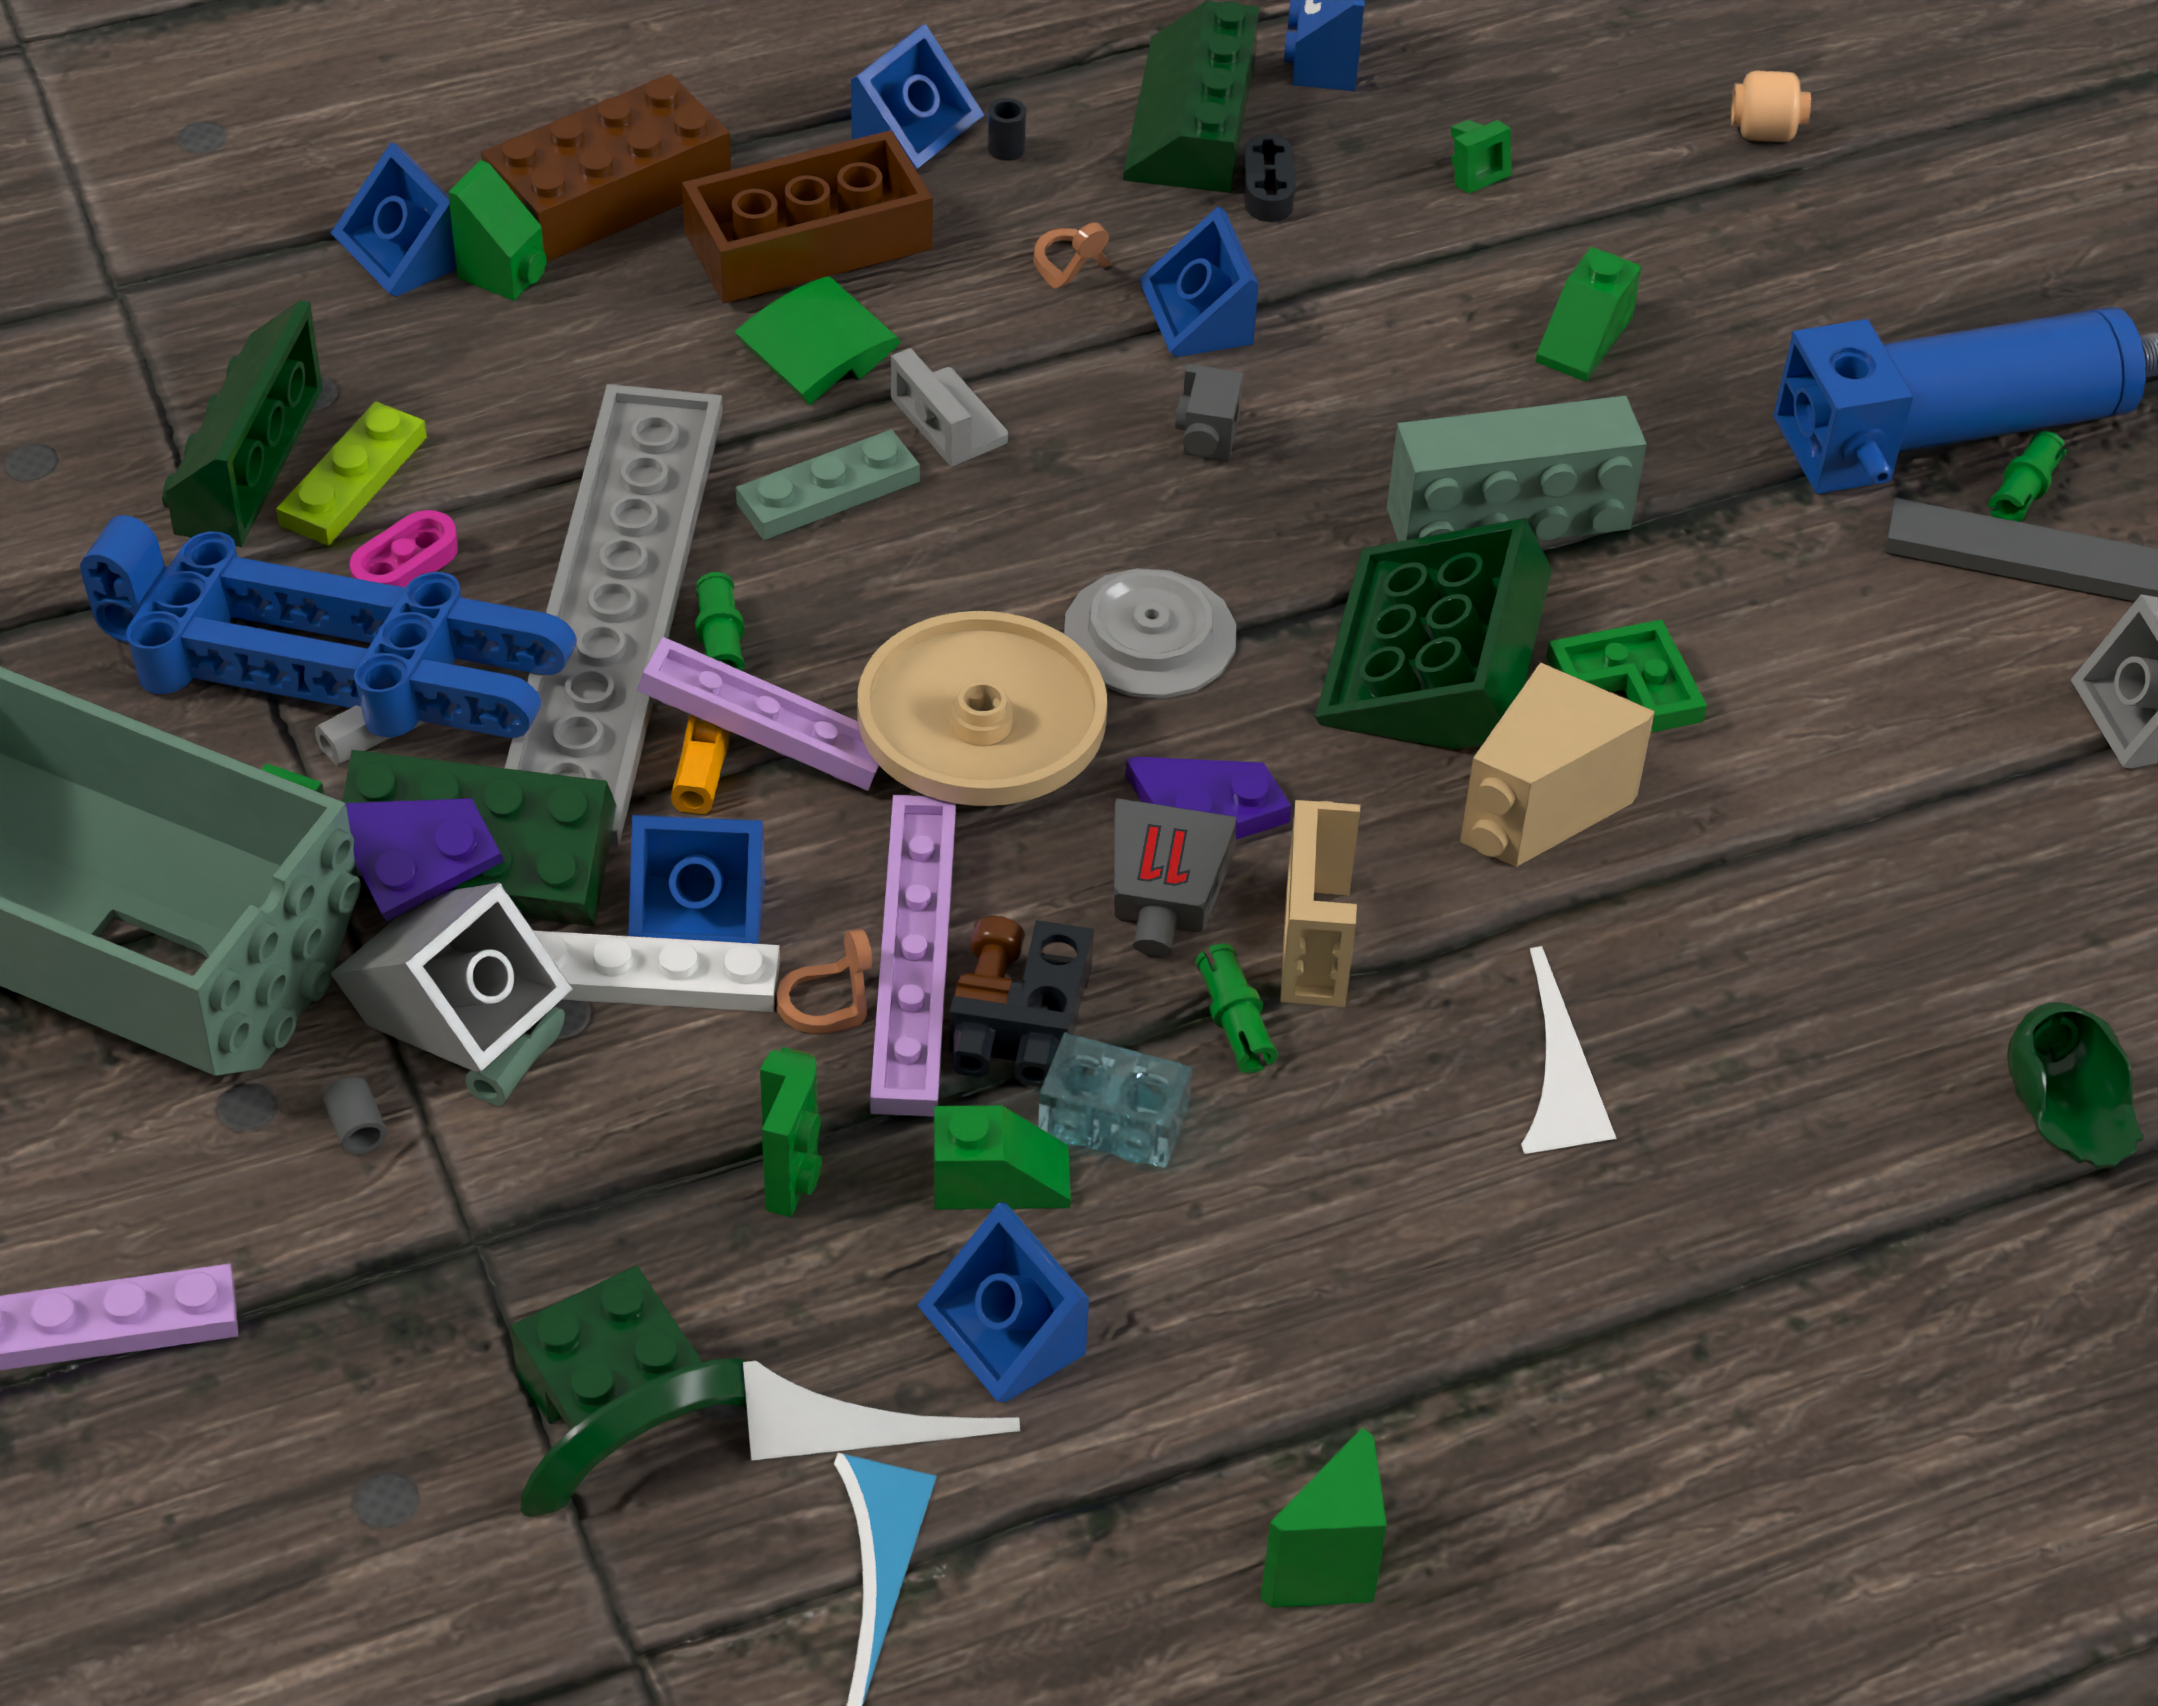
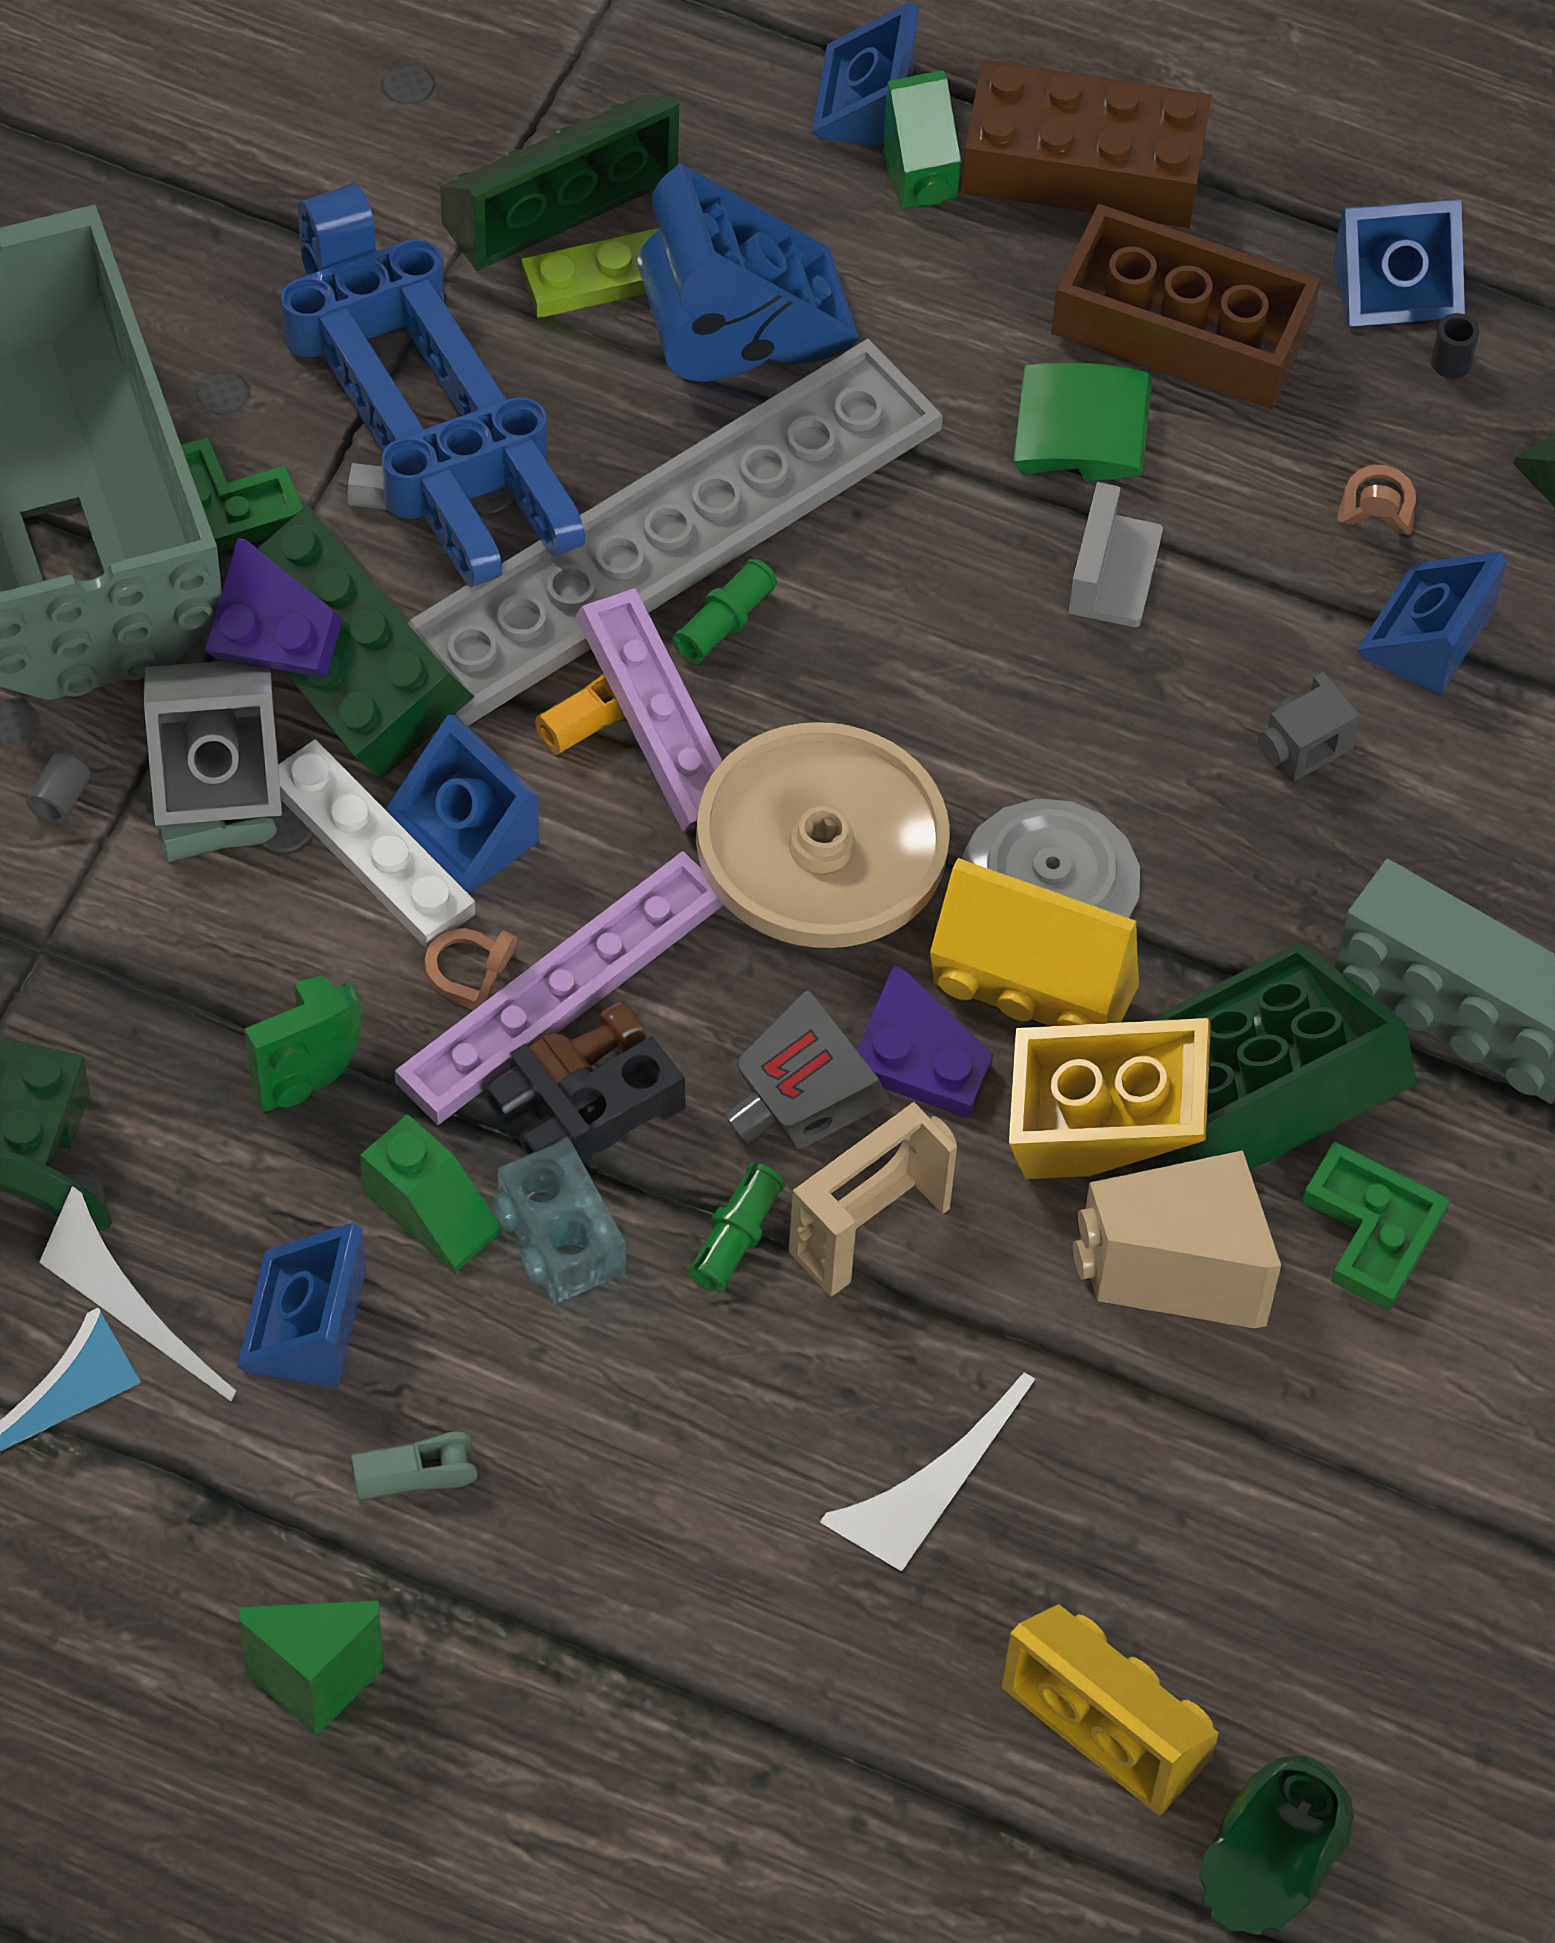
camera: 45 degrees right, 10 degrees up
(407, 549) = (567, 369): dark pink plate -> none
(471, 410) = (736, 284): none -> blue brick
(827, 484) = (949, 554): sand green plate -> none
(1214, 1358) = (400, 1467): none -> sand green bar
(1227, 665) = (1033, 950): none -> yellow slope
(1392, 711) = (1107, 1094): none -> yellow slope
(1871, 1098) = (1108, 1706): none -> yellow slope

